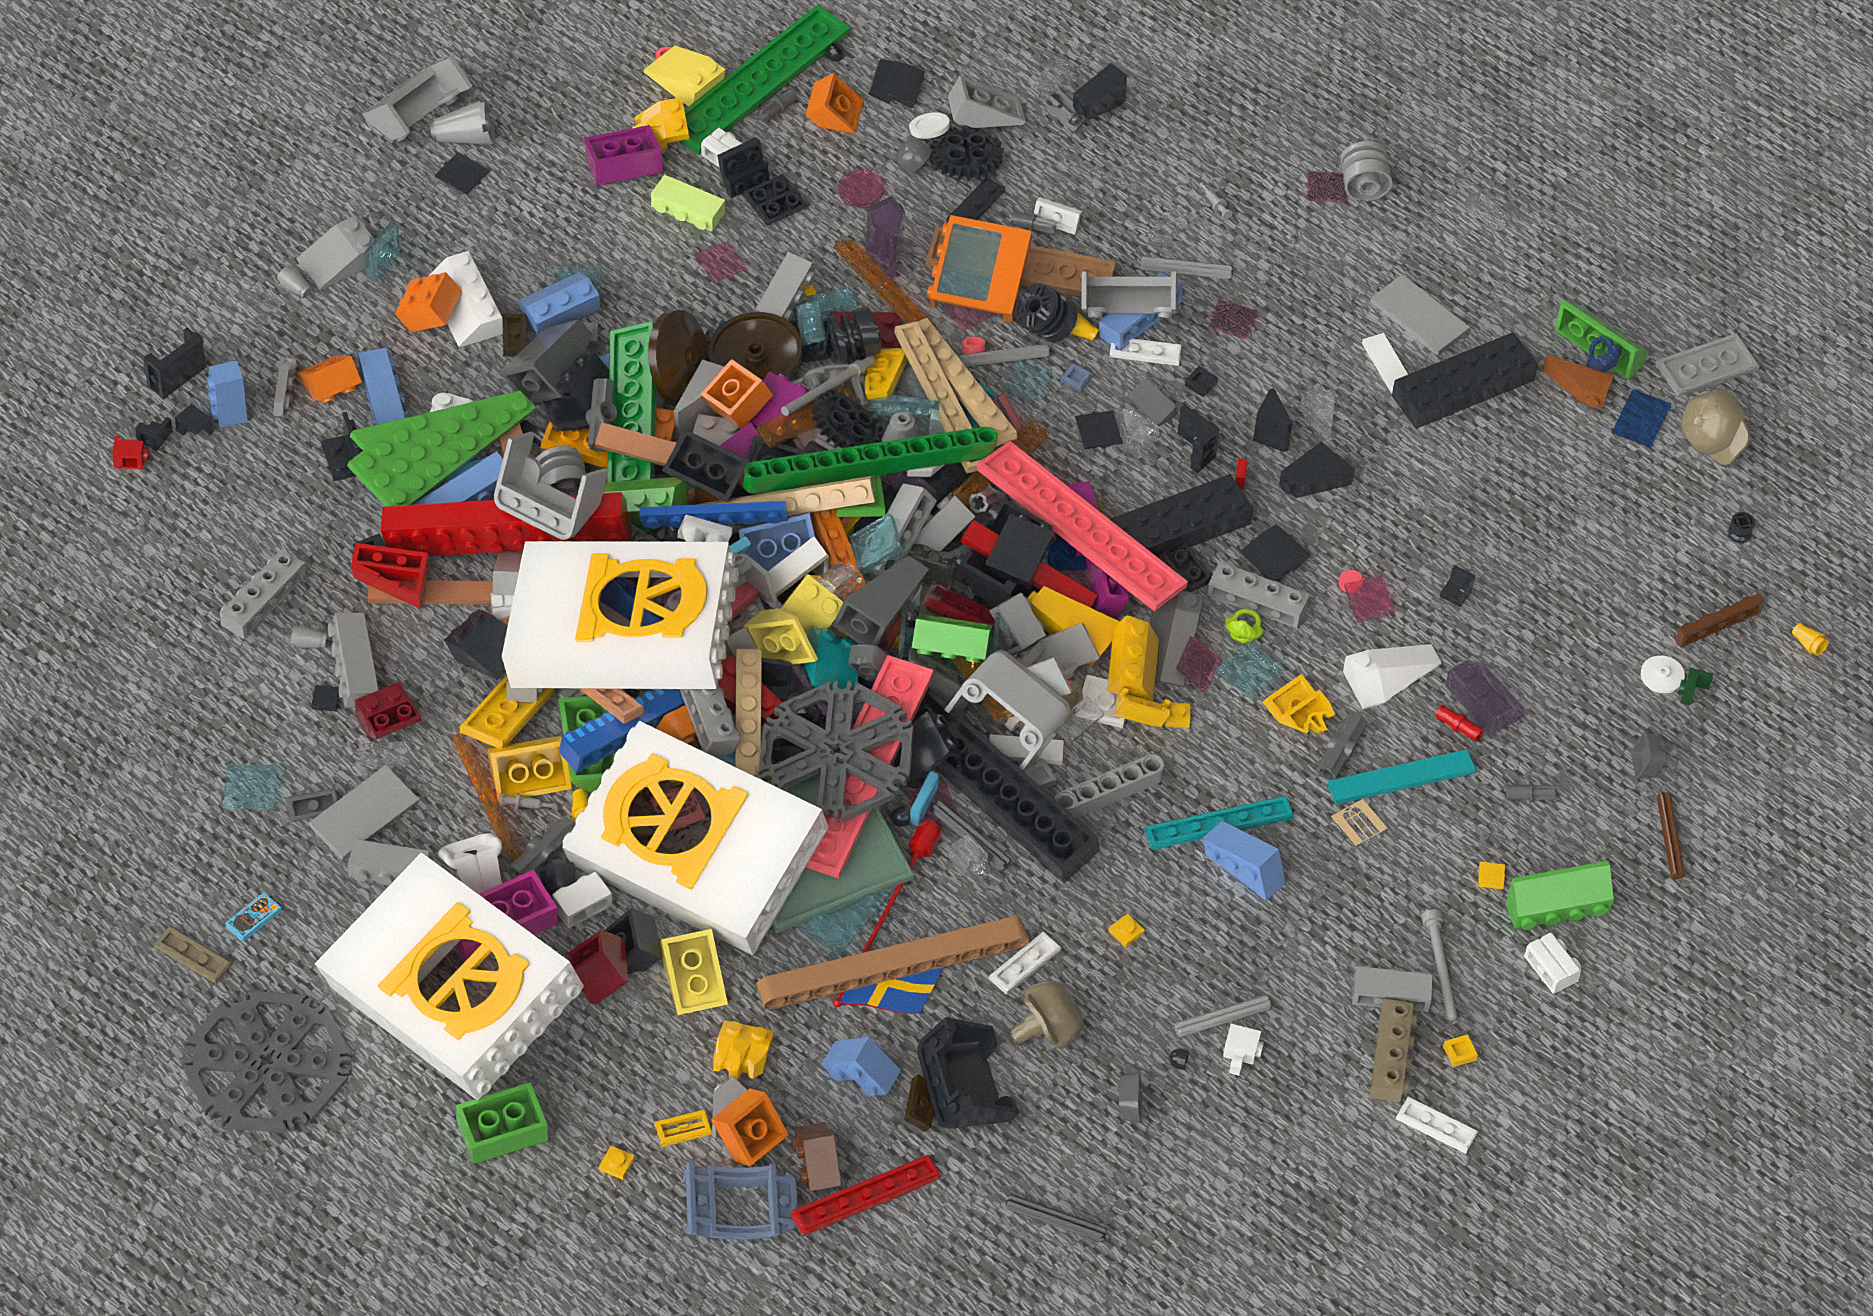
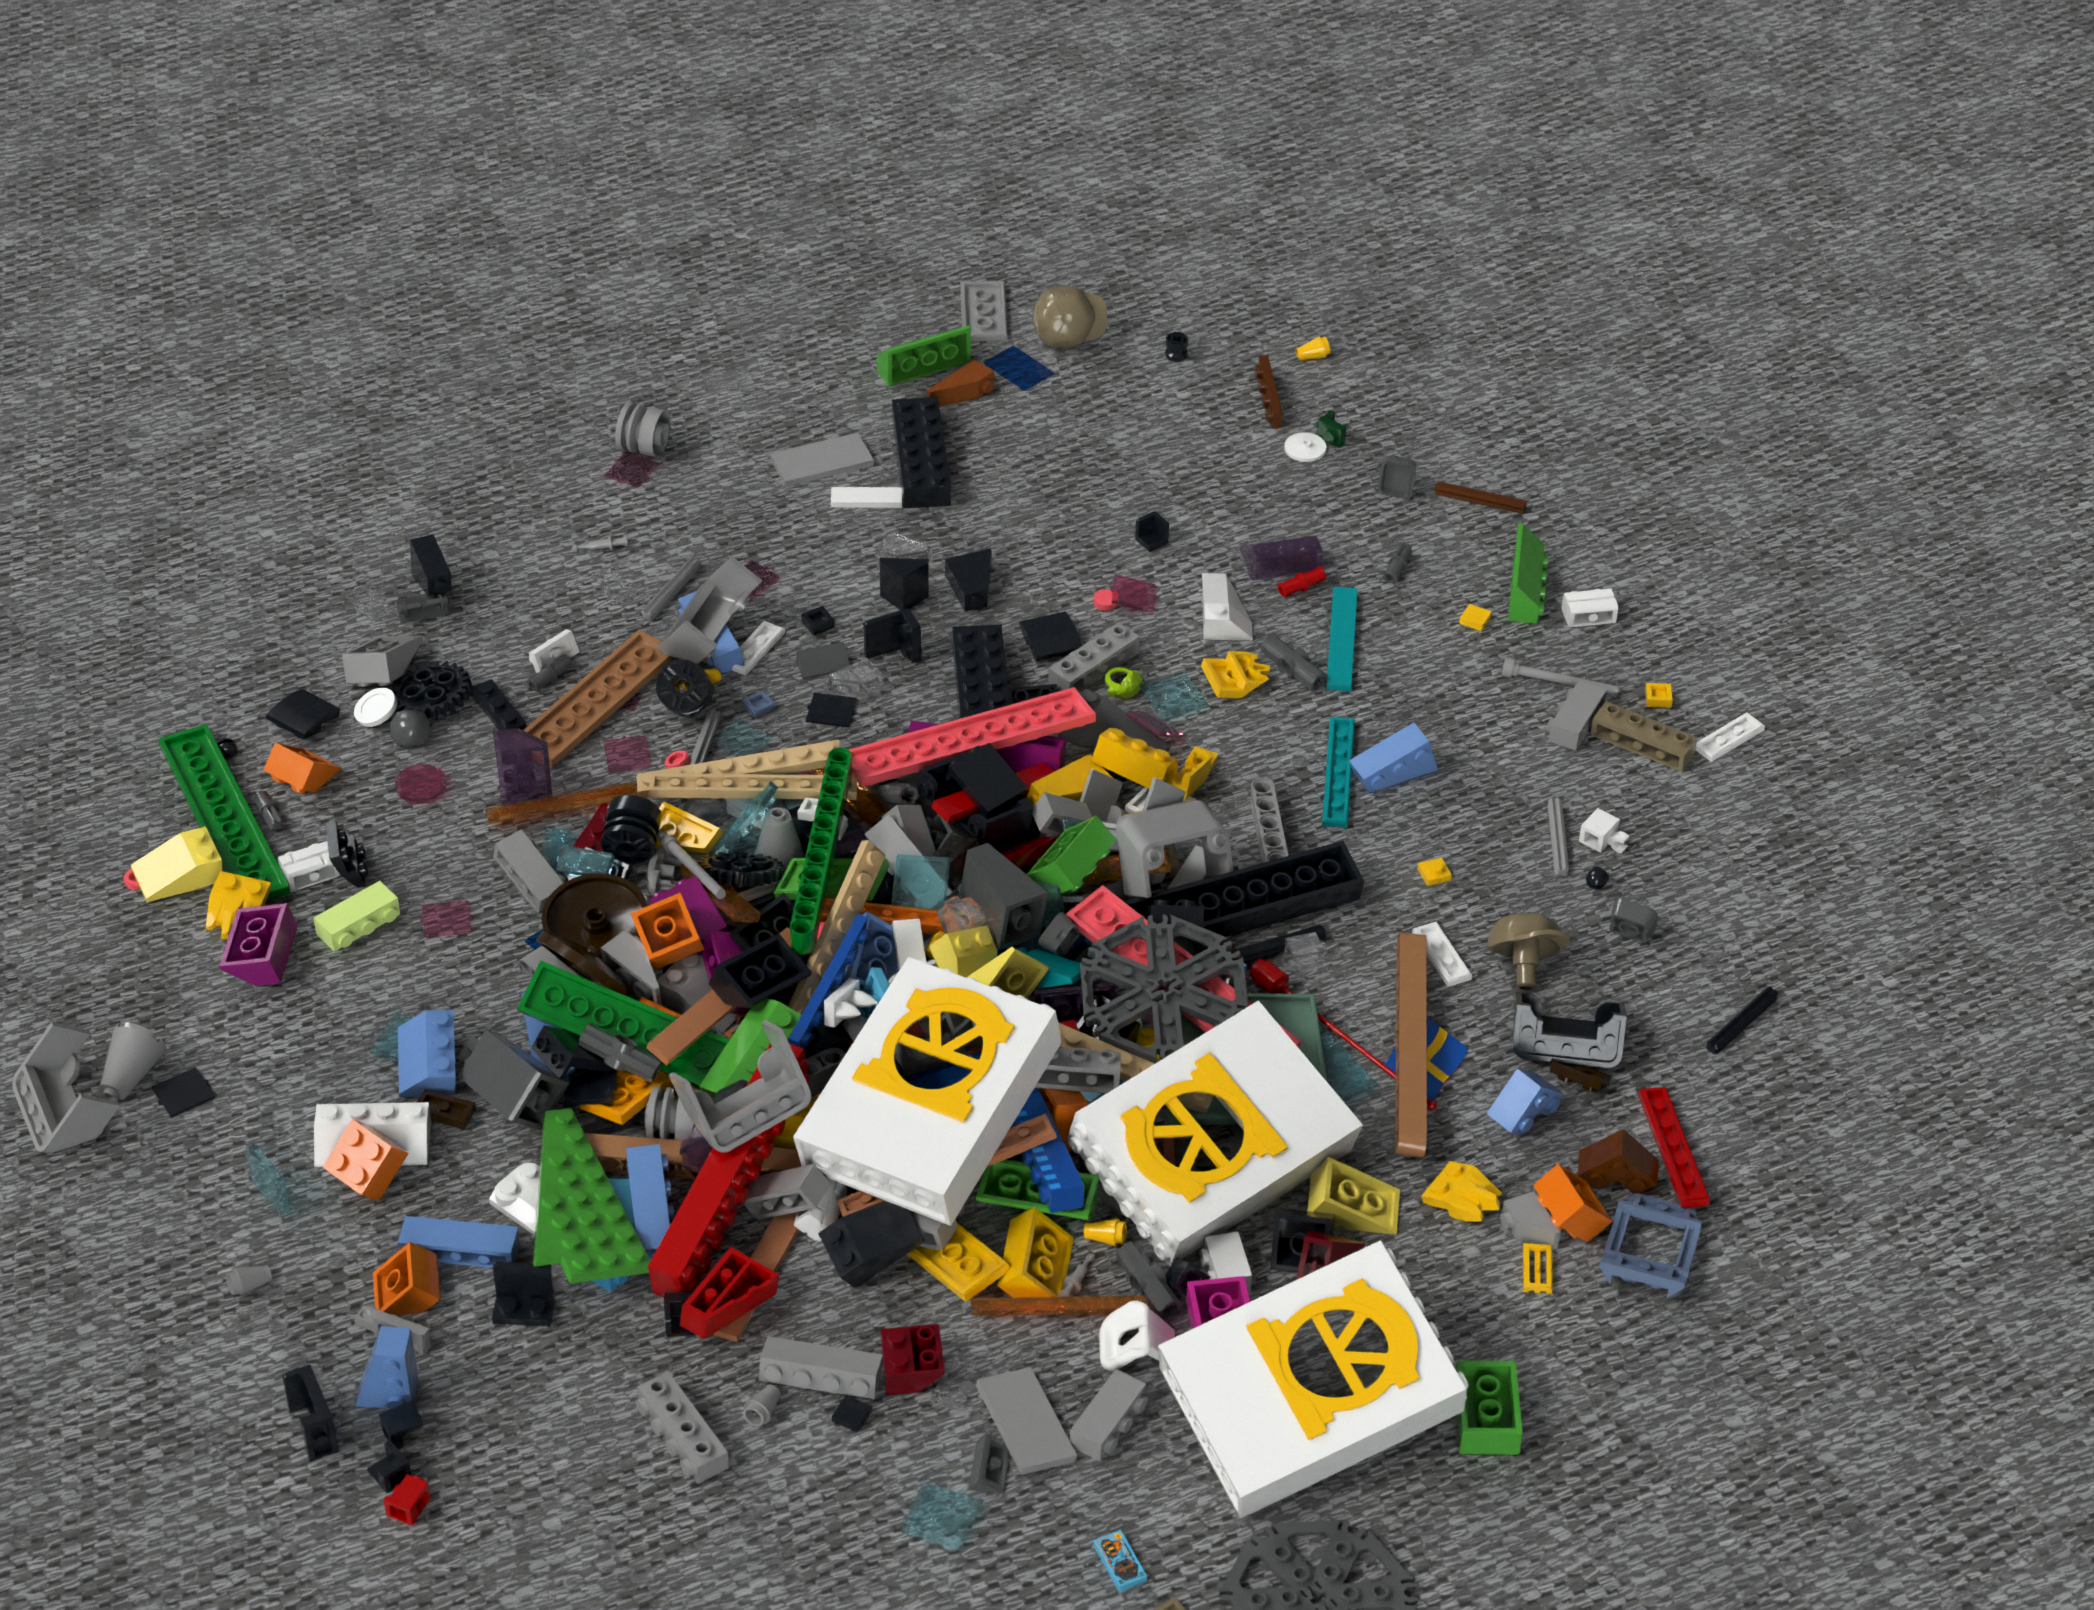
camera: 65 degrees left, 10 degrees down
(337, 253) = (234, 1225): light grey slope -> none
(616, 1162) = (1560, 1333): yellow plate -> none
(774, 199) = (393, 852): black slope -> none
(980, 266) = (593, 718): panel -> none
(1241, 473) = (943, 626): red tile -> none
(1359, 823) = (1379, 682): piece -> none
(1606, 361) = (953, 366): dark blue piece -> none

